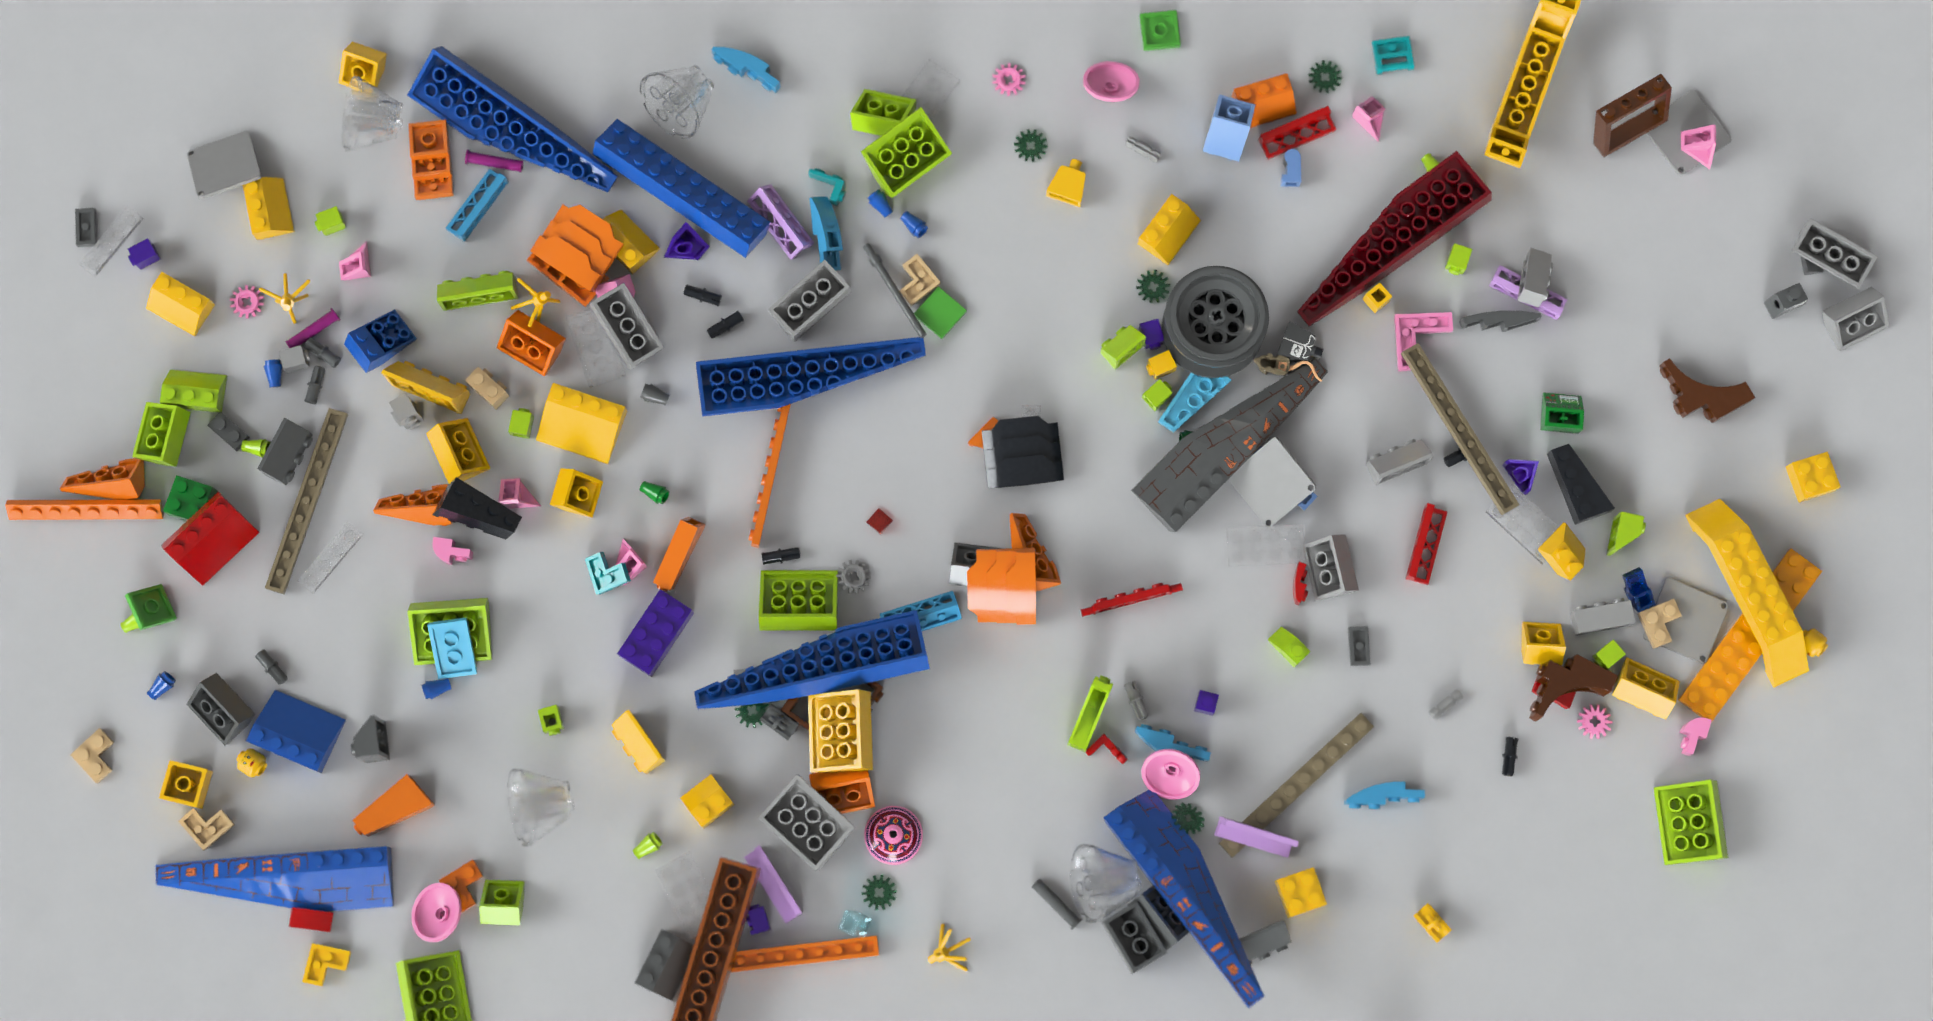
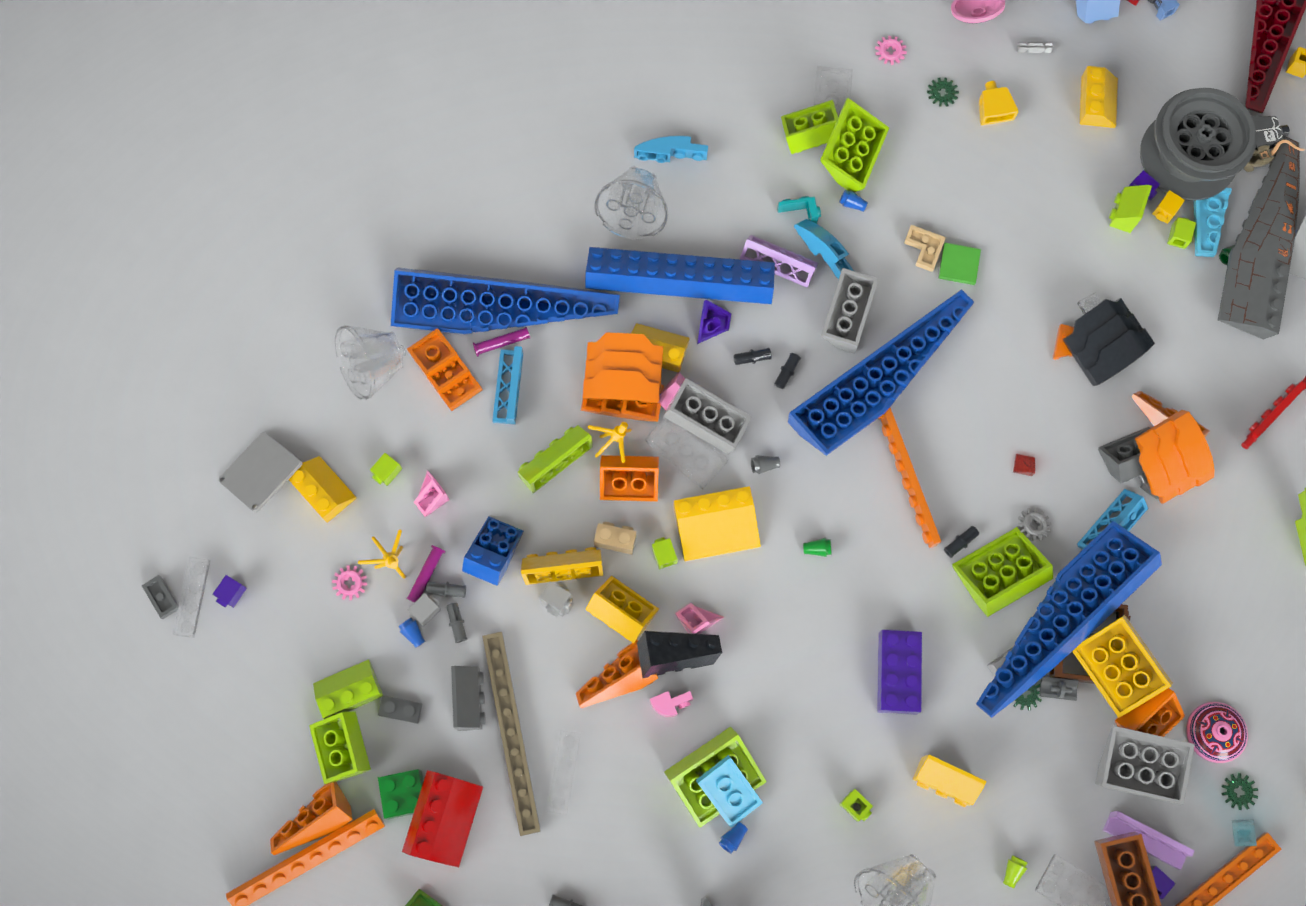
camera: 30 degrees left, 5 degrees down
(179, 304) = (288, 618): yellow slope -> none
(255, 447) = (437, 708): lime cone -> none
(362, 62) = (331, 317): yellow slope -> none
(576, 492) = (750, 586): yellow slope -> none
(602, 576) = (820, 648): plate -> none
(633, 562) = (834, 623): bright pink slope -> none
(678, 553) = (875, 589): orange slope -> none
(707, 801) = (1041, 798): yellow slope -> none
(876, 261) = (880, 250): dark grey bar -> none
(915, 225) = (891, 203): blue cone -> none
(1145, 283) = (1123, 150): clear green gear -> none

